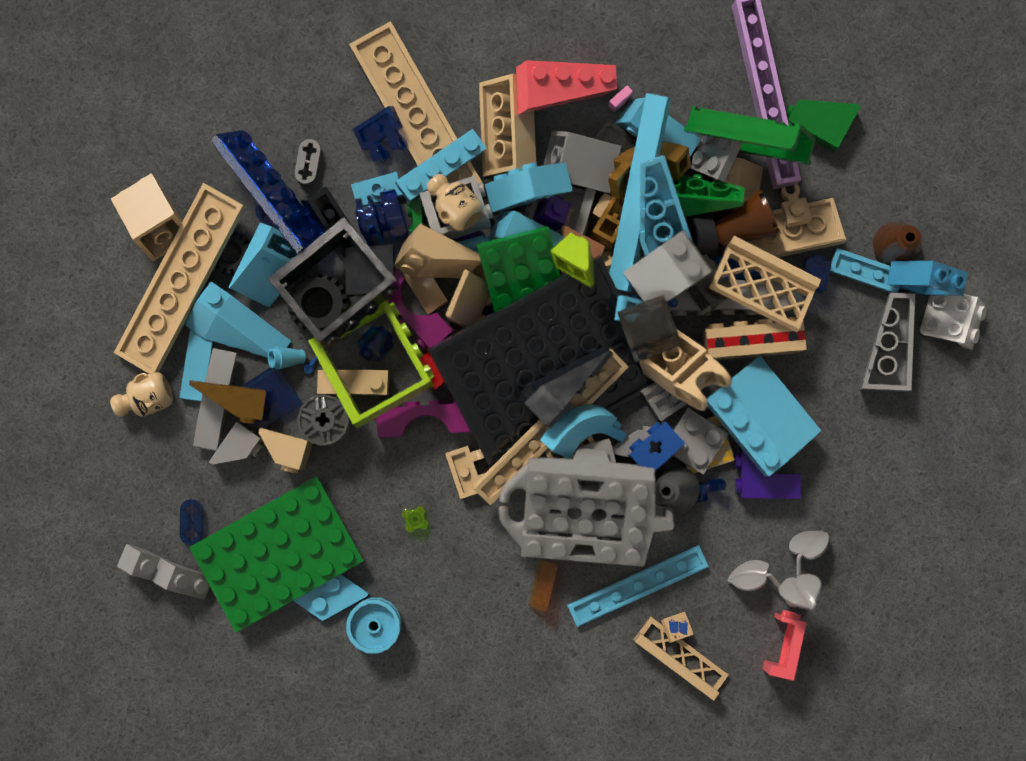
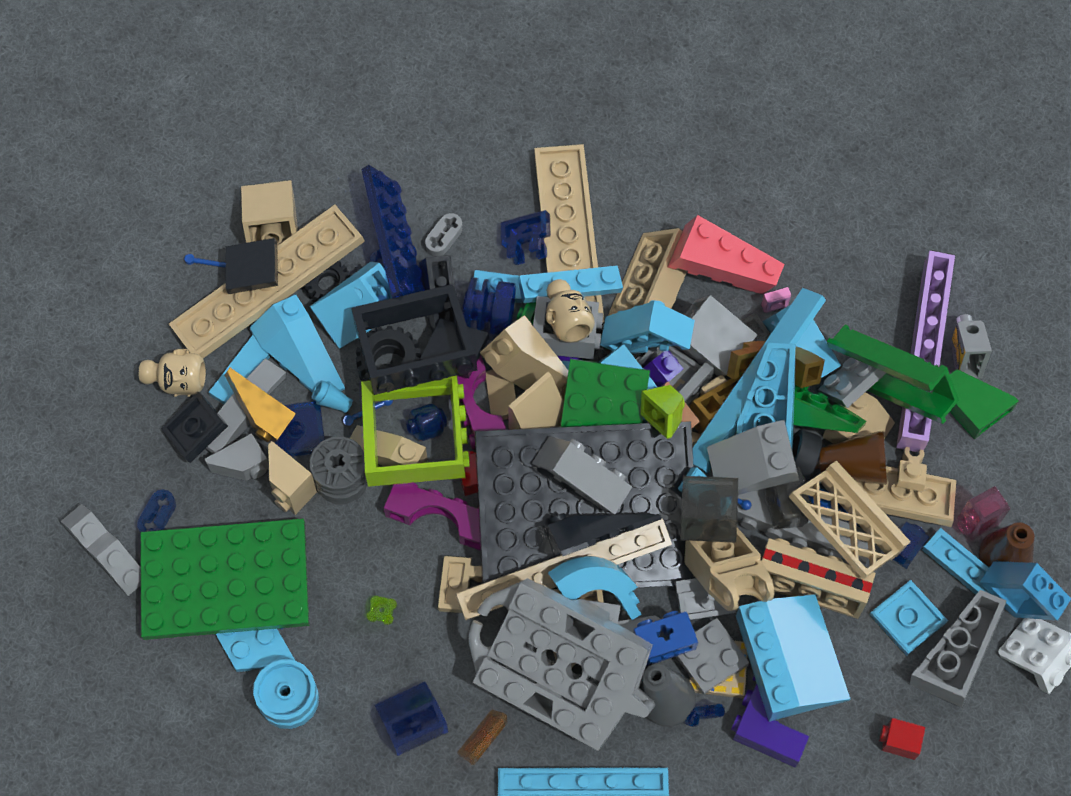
camera: 25 degrees right, 20 degrees down
(98, 282) = (189, 259): none -> blue hinge
(159, 272) = (251, 266): none -> black tile
(185, 436) = (194, 427): none -> black tile
(480, 597) = (412, 718): none -> clear blue slope
(532, 347) = (583, 473): none -> light grey wedge
(801, 71) = (972, 339): none -> light grey torso
(838, 334) = (908, 617): none -> medium azure tile
(867, 222) = (983, 513): none -> clear pink brick
(872, 440) = (902, 738): none -> red brick

